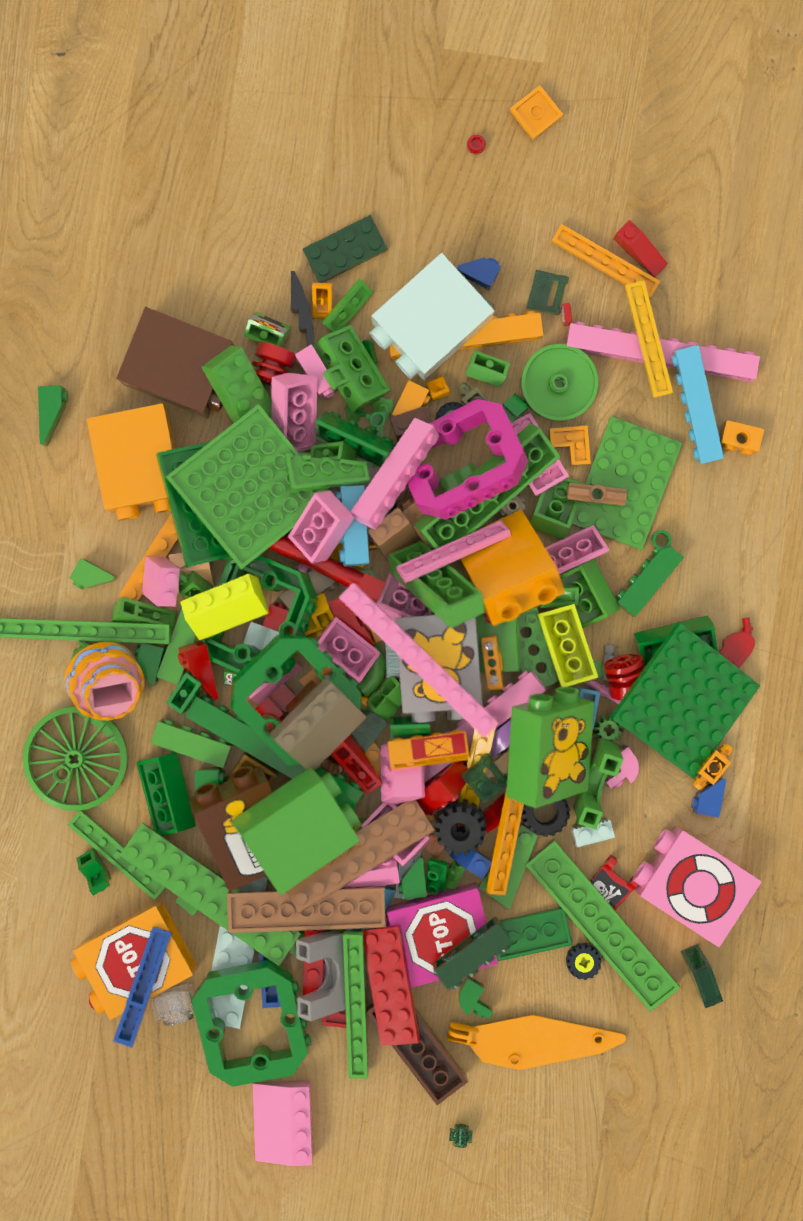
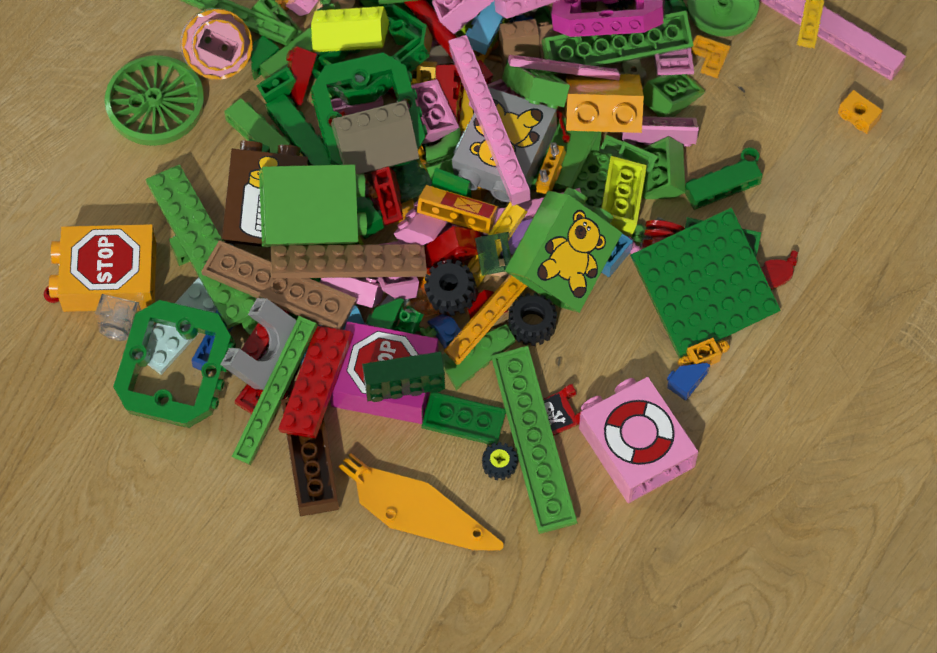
camera: 30 degrees right, 25 degrees down
(94, 870) = (115, 188): green brick -> none
(111, 850) = (137, 175): bright green plate -> none
(142, 987) = (100, 279): blue slope -> none
(166, 794) = (212, 158): green slope -> none
(283, 1122) = (152, 468): bright pink slope -> none
(460, 1135) = (304, 554): clear green gear -> none
(468, 997) = (379, 441): green brick -> none
(584, 835) = (566, 356): light aqua brick -> none
(605, 760) = (609, 291): bright green arch -> none
(609, 495) = (703, 89): medium nougat piece -> none
(612, 724) = (617, 282): bright green gear -> none
(628, 770) = (623, 321): bright pink brick -> none
(633, 461) = (742, 105): bright green plate -> none
(698, 404) = (833, 68): medium azure brick -> none
(702, 976) = (602, 525): clear green slope -> none

